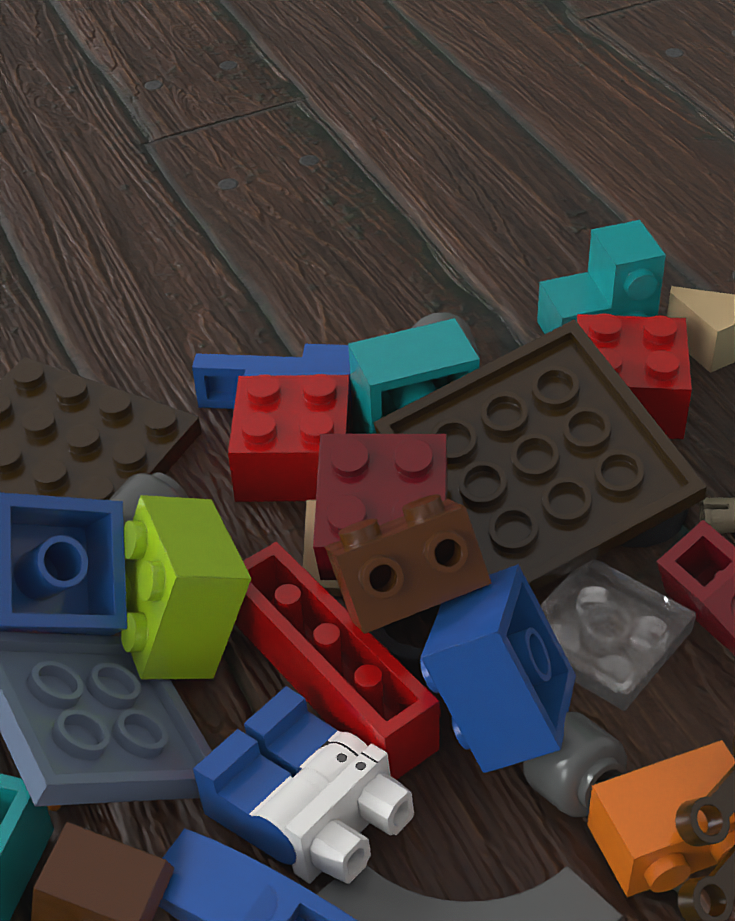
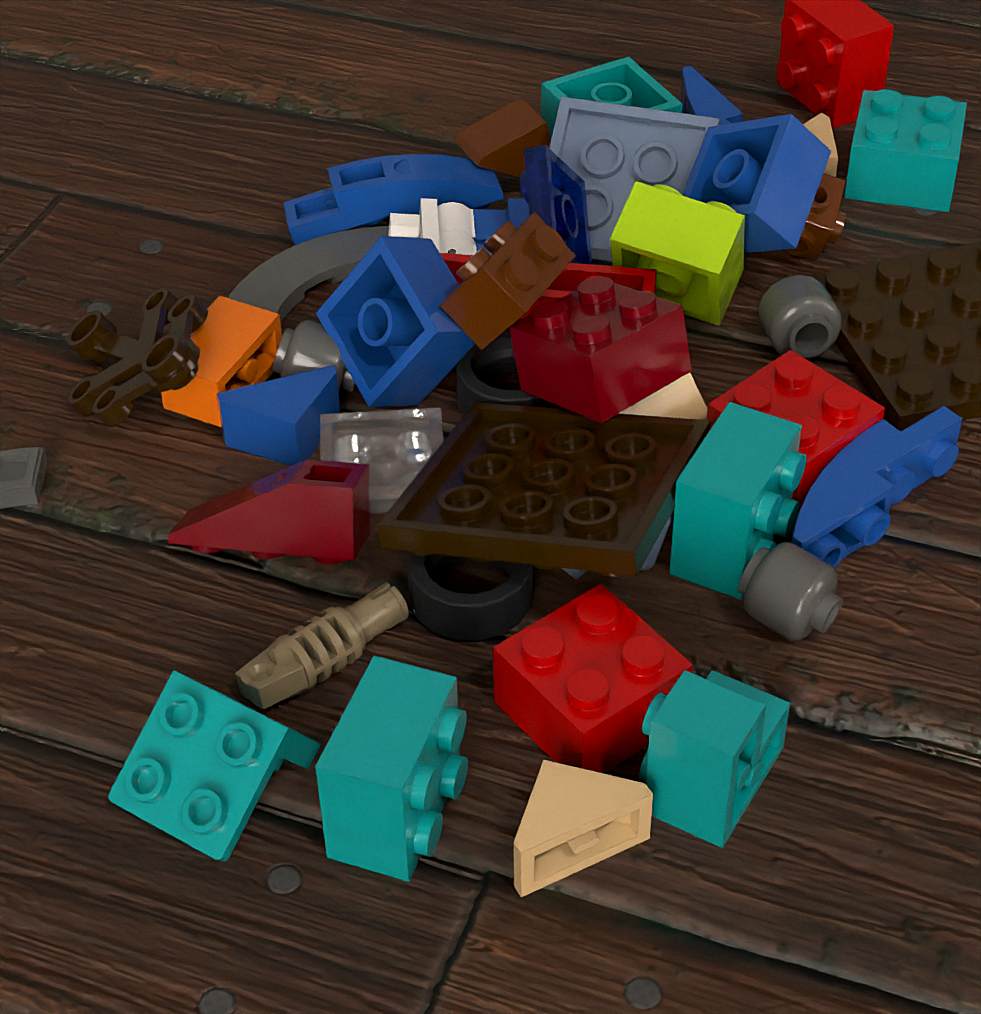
camera: 135 degrees right, 0 degrees up
(219, 692) = (558, 199): none -> clear blue plate
(654, 716) = (279, 415): none -> blue slope

